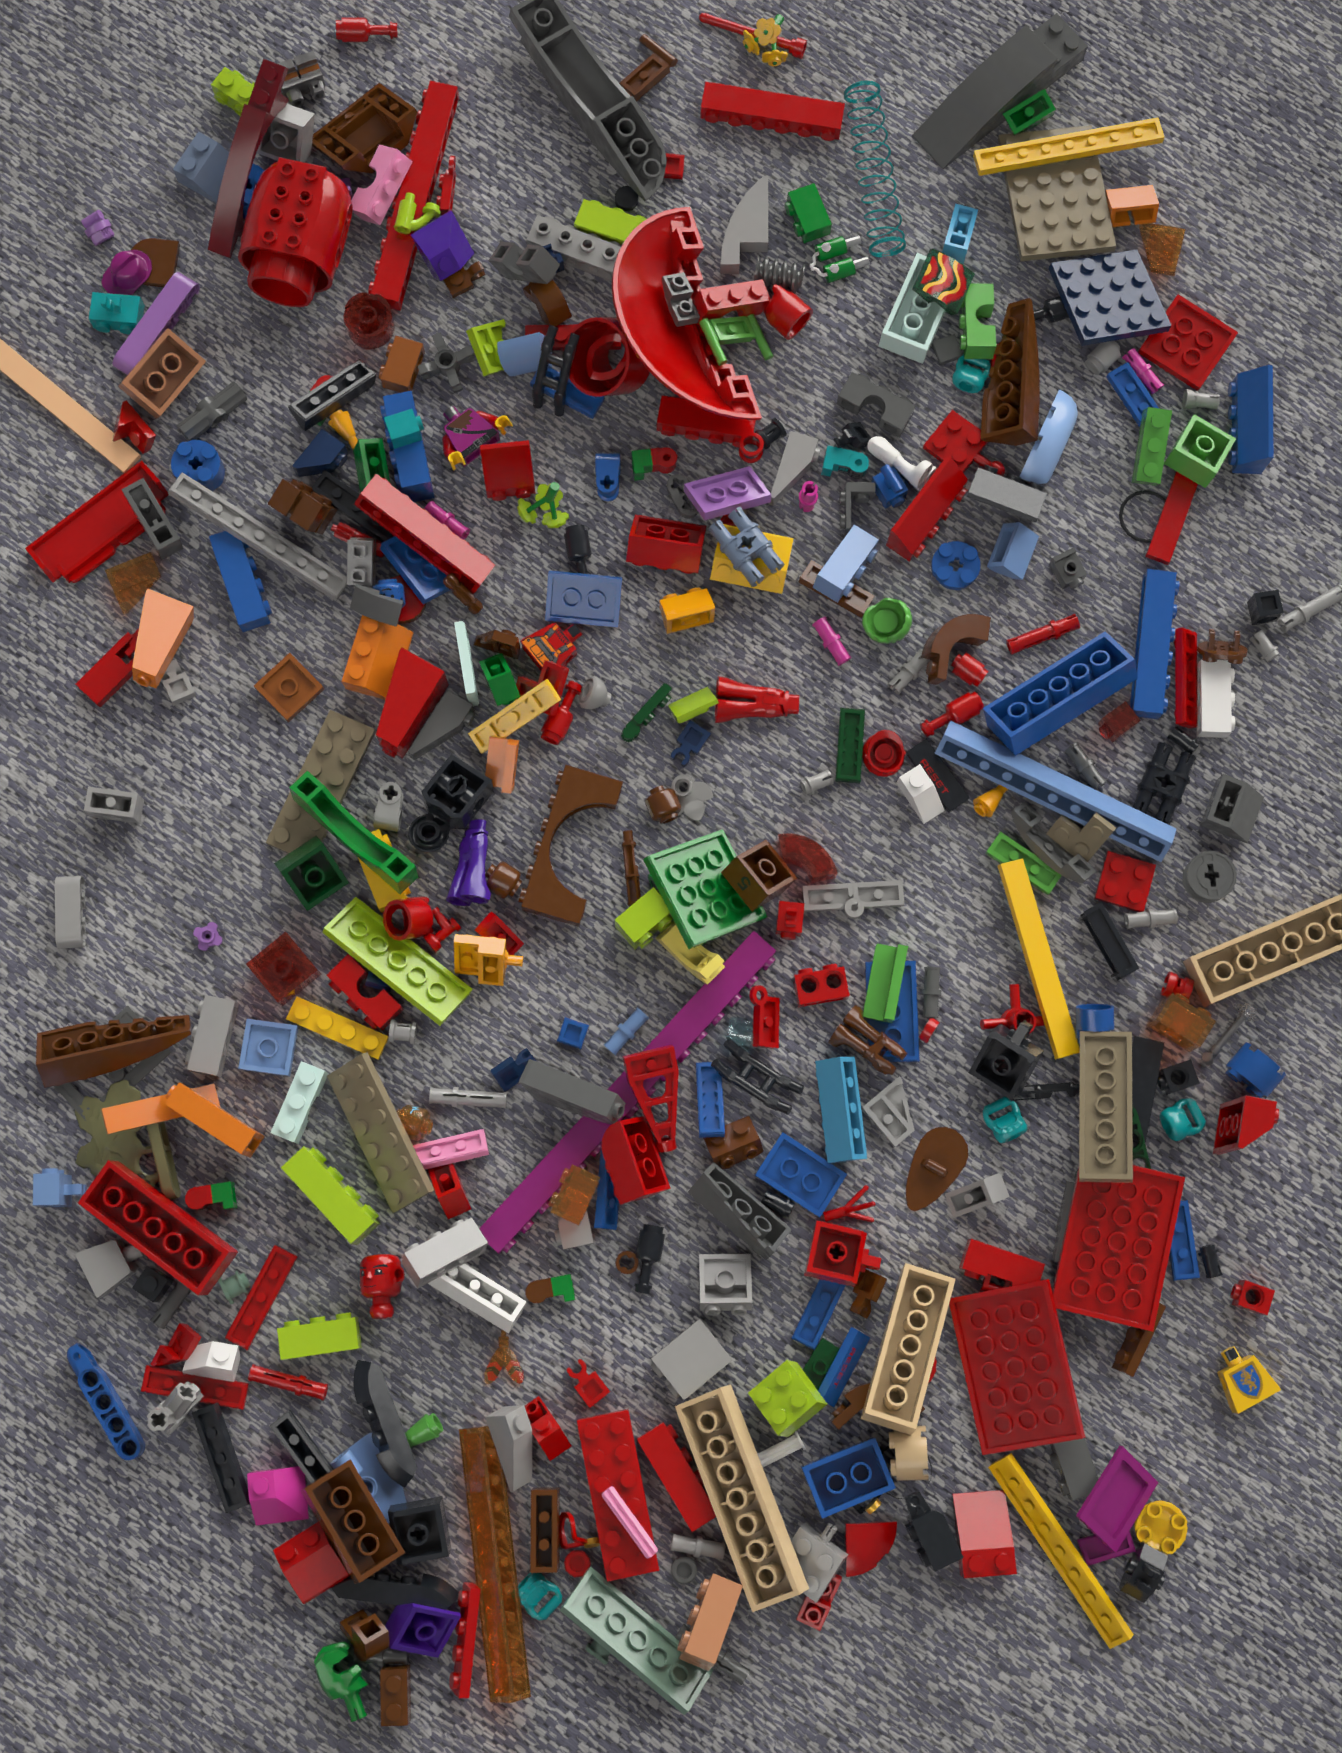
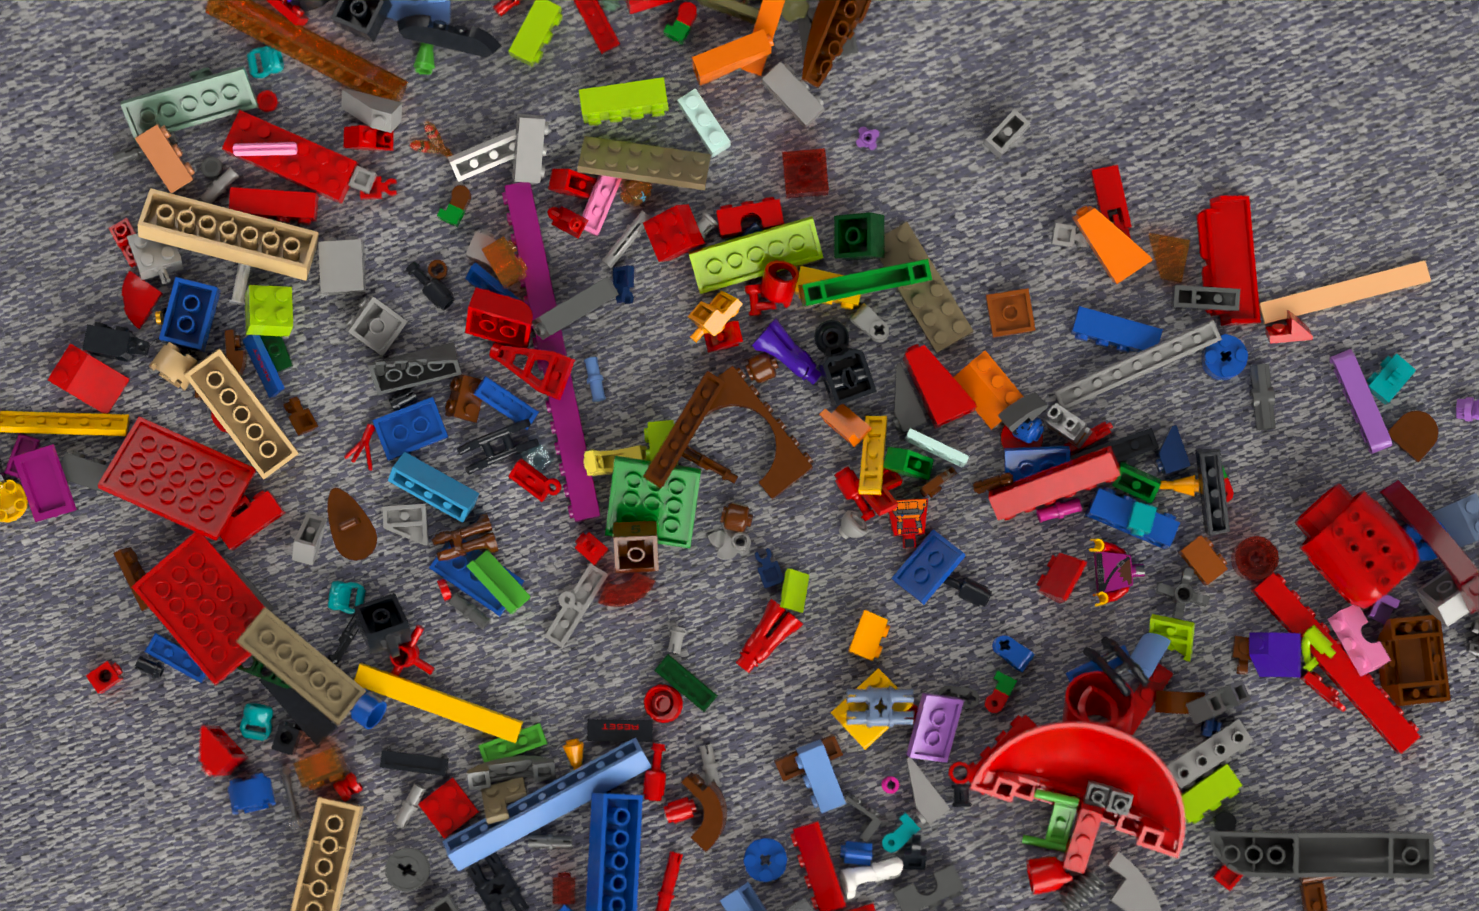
camera: 130 degrees right, 5 degrees up
(69, 912) = (951, 54): light grey beam -> none
(126, 272) = (1417, 407): magenta piece -> none
(162, 373) = (1314, 378): nougat brick -> none
(268, 1047) = (758, 127): medium blue plate -> none
(306, 507) = (1135, 418): reddish brown piece -> none
(337, 1027) = (739, 183): yellow plate -> none
(381, 1280) = (542, 96): red piece -> none
(430, 1053) = (673, 232): none -> red brick
(489, 1166) = (567, 221): none -> red hinge
(545, 1530) = (302, 93): reddish brown brick -> none
(547, 499) = (1024, 596): lime plant -> none
(573, 1033) = (620, 342): blue tile -> none
(587, 1543) = (289, 102): red piece -> none
(590, 1402) = (362, 179): none -> light grey tile
(617, 901) = (683, 429): none -> reddish brown plate
(645, 714) = (811, 551): dark green hinge -> none
(666, 544) = (930, 657): red slope -> none
(817, 1313) = (313, 377): blue tile -> none
(822, 992) = (524, 534): red brick -> none
(831, 641) = (772, 726): dark pink pin -> none
(850, 1245) = (325, 413): red hinge -> none
(887, 621) = (756, 775): bright green piece -> none
(921, 793) = (614, 707): white slope -> none
(1245, 1381) = (55, 629): yellow torso -> none

